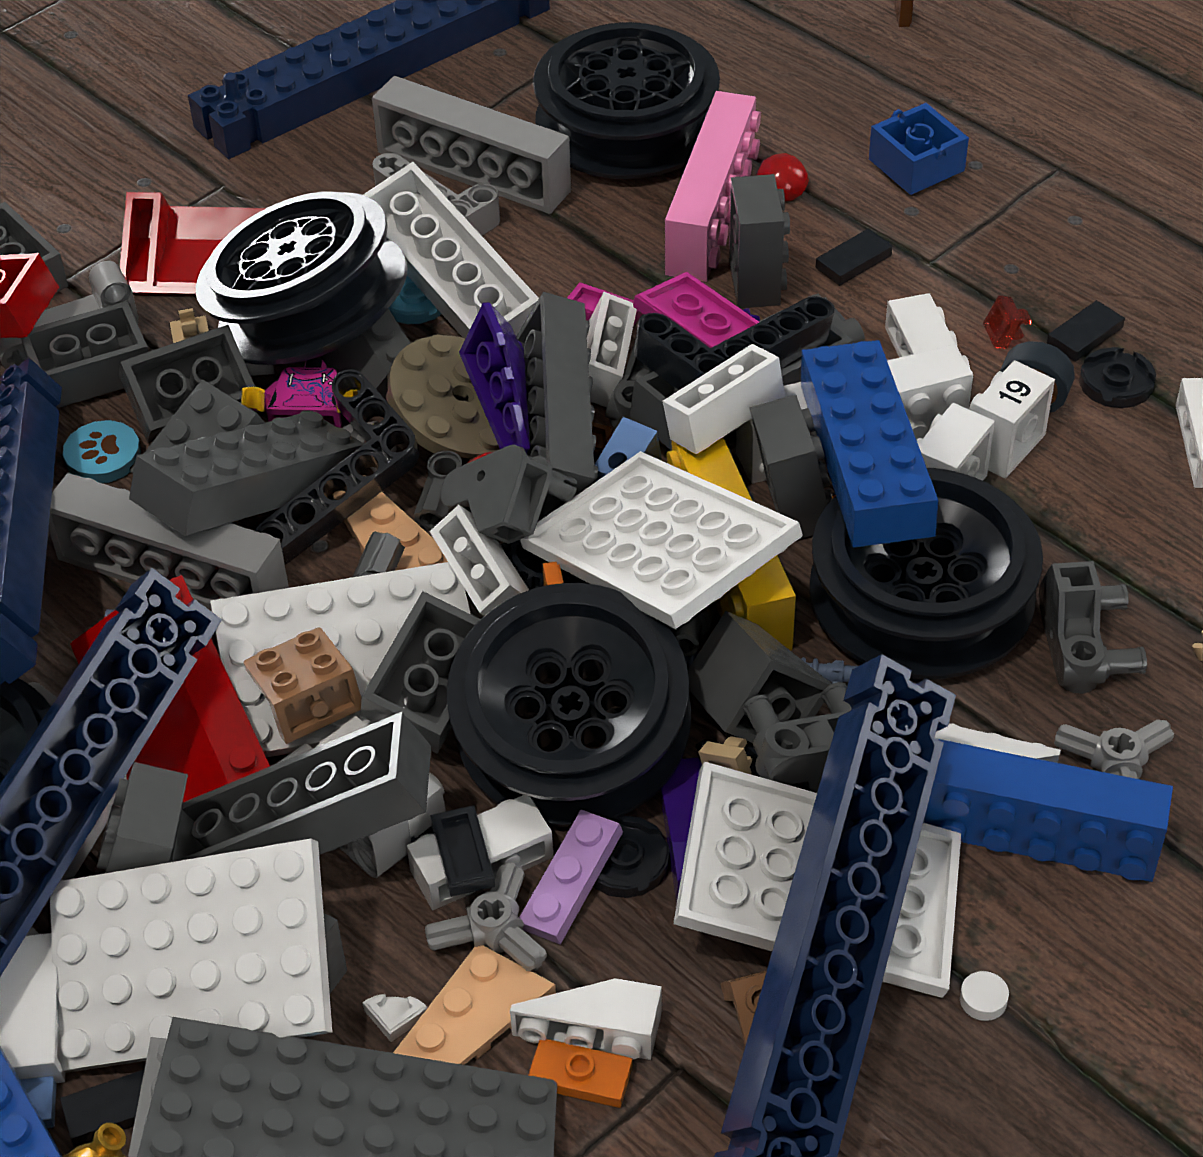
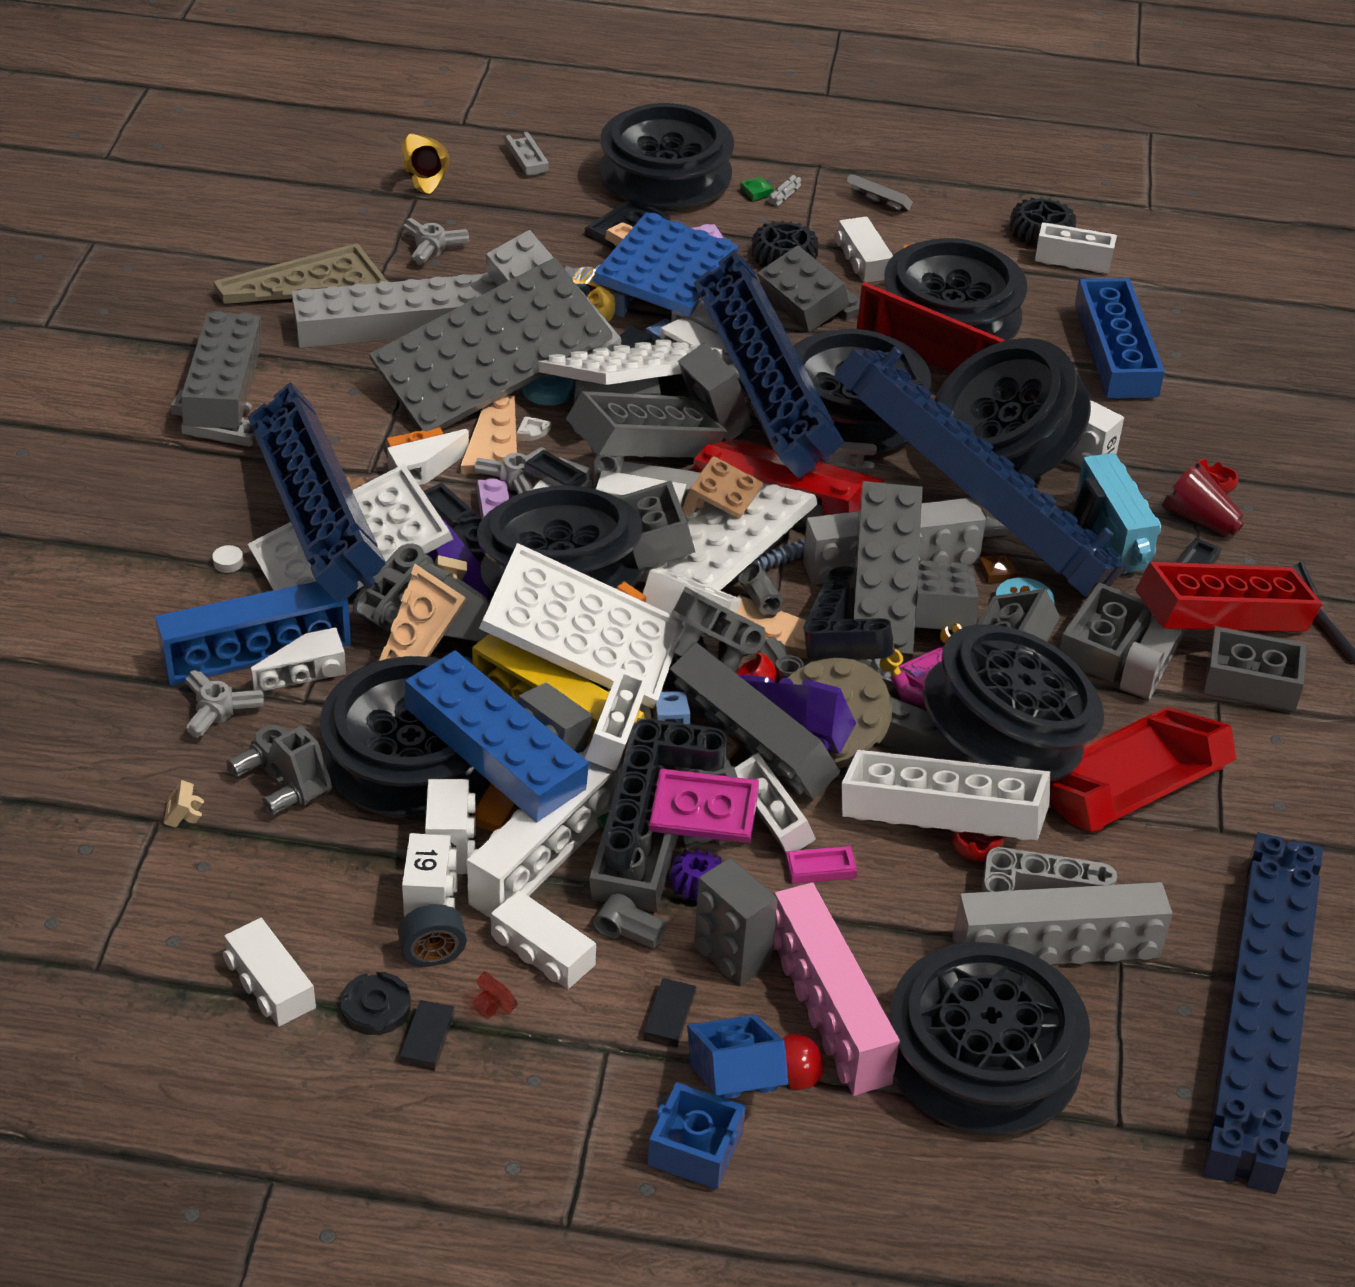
camera: 140 degrees right, 5 degrees down
(624, 933) = (448, 504): none -> black tile
(814, 655) = (423, 616): none -> light nougat wing
(846, 157) = (737, 1055): none -> blue brick

